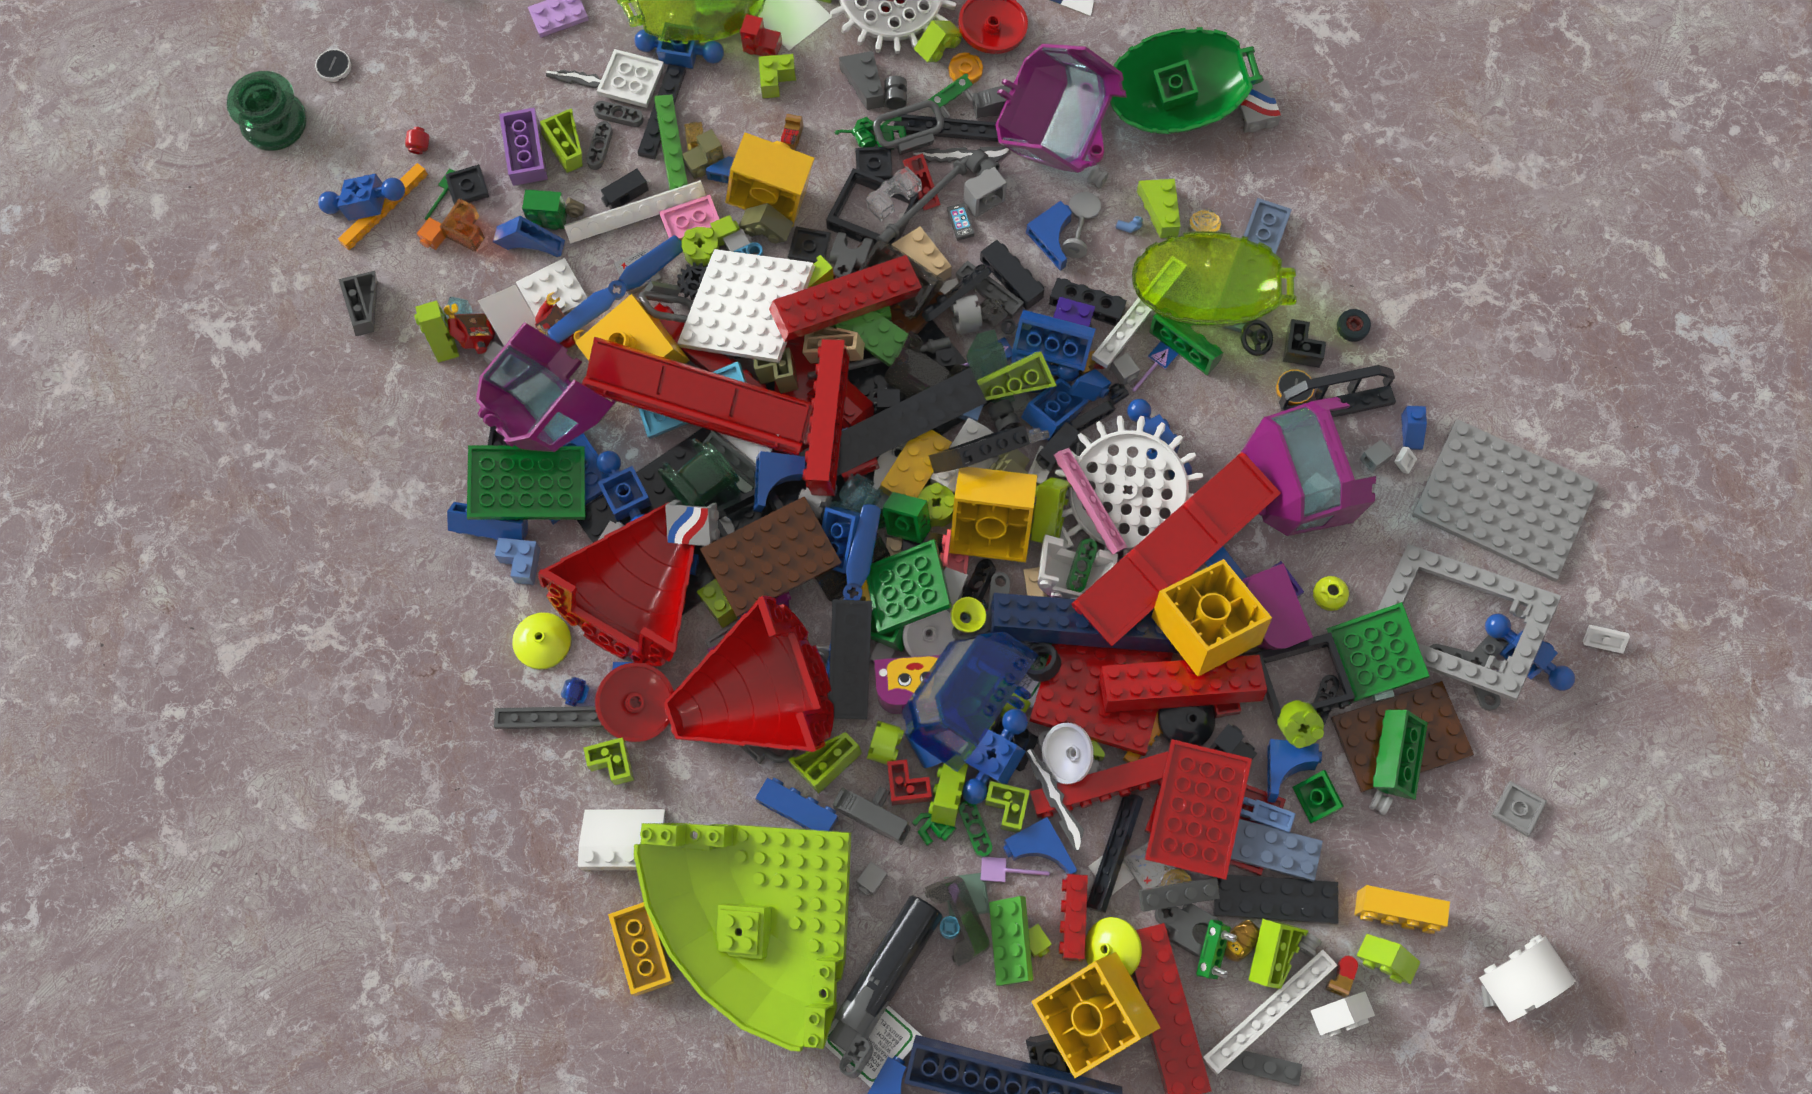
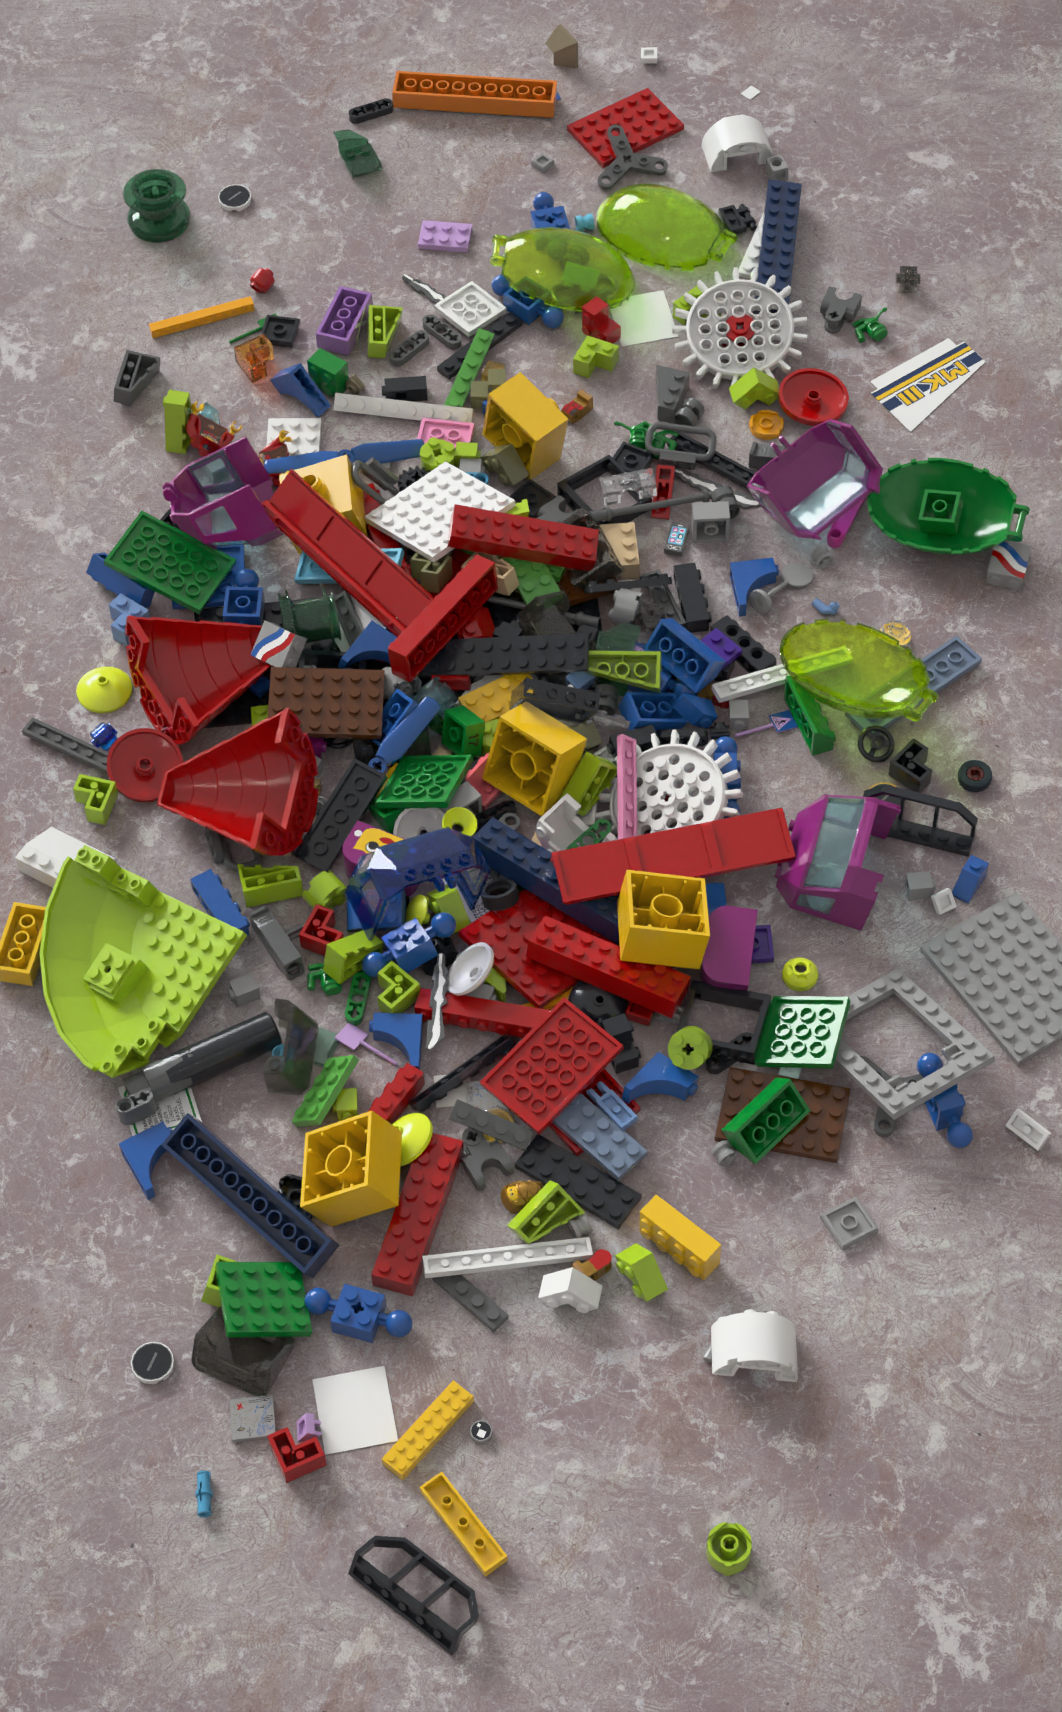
camera: 30 degrees right, 15 degrees down
(361, 196) = (187, 299): blue brick -> none
(431, 234) = (224, 353): orange brick -> none
(507, 312) = (252, 427): white sticker -> none
(951, 92) = (737, 435): green piece -> none
(1162, 205) = (866, 599): lime wedge -> none
(1214, 949) = (484, 1193): green piece -> none
(1318, 797) = (670, 1120): green slope -> none

